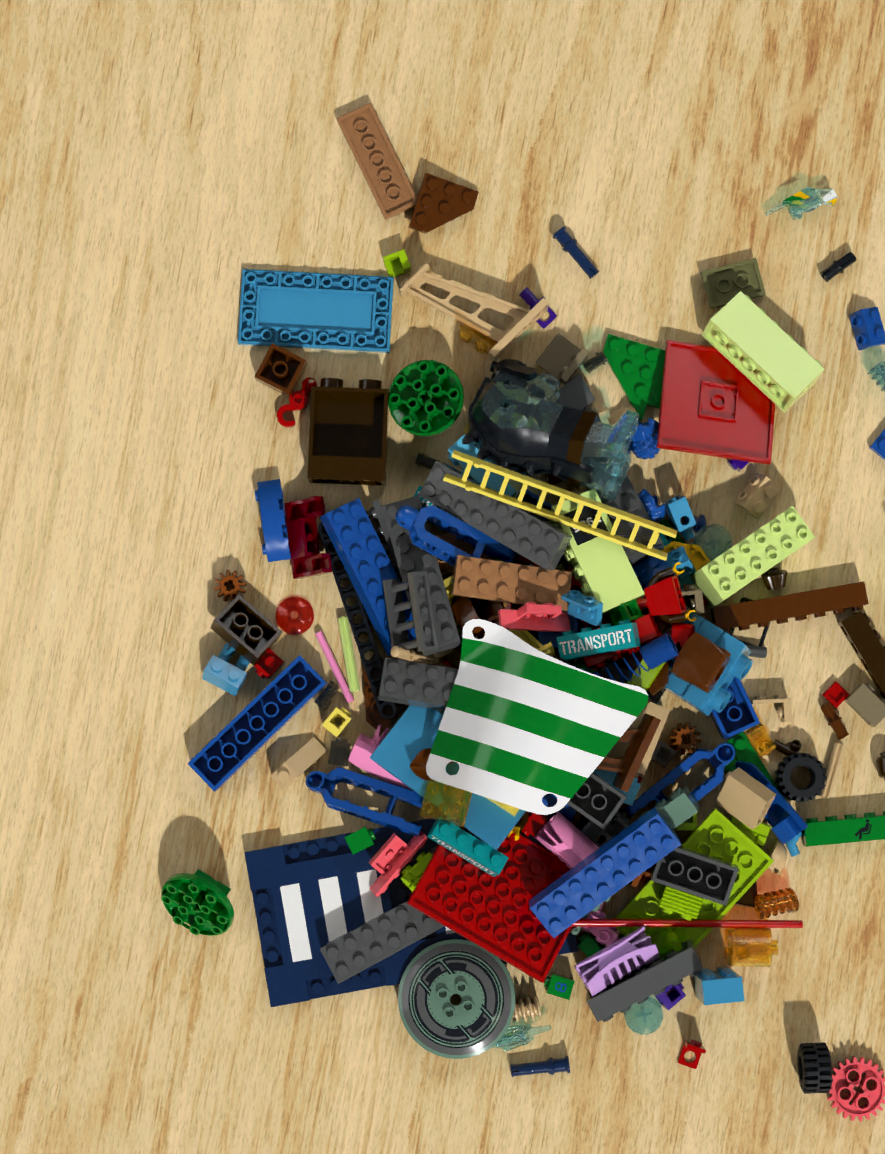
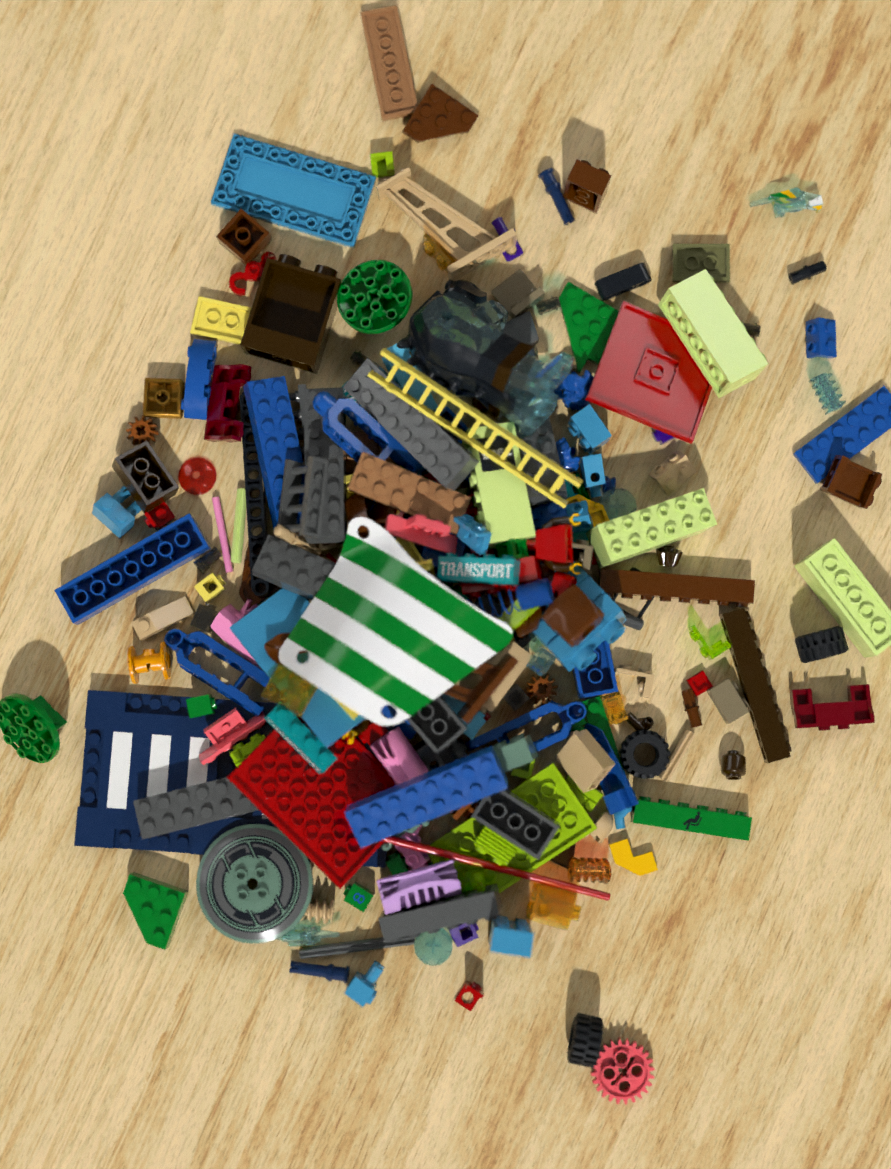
camera: 15 degrees right, 0 degrees up
(232, 541) = (155, 389): none -> pearl gold brick
(279, 457) = (220, 320): none -> light yellow plate
(296, 808) = (149, 660): none -> light orange hose
(365, 1047) = (154, 907): none -> green brick
(565, 1036) = (352, 946): none -> dark grey axle
(586, 1072) = (363, 986): none -> dark azure brick
(604, 237) = (587, 185): none -> reddish brown brick
(661, 320) = (623, 281): none -> black beam
(666, 475) = (588, 429): none -> dark azure brick
(679, 712) = (541, 661): none -> clear light blue brick
(799, 336) = (753, 329): none -> clear smoke pin
(821, 885) = (639, 864): none -> yellow tile
(845, 655) = (718, 647): none -> clear neon green bracket

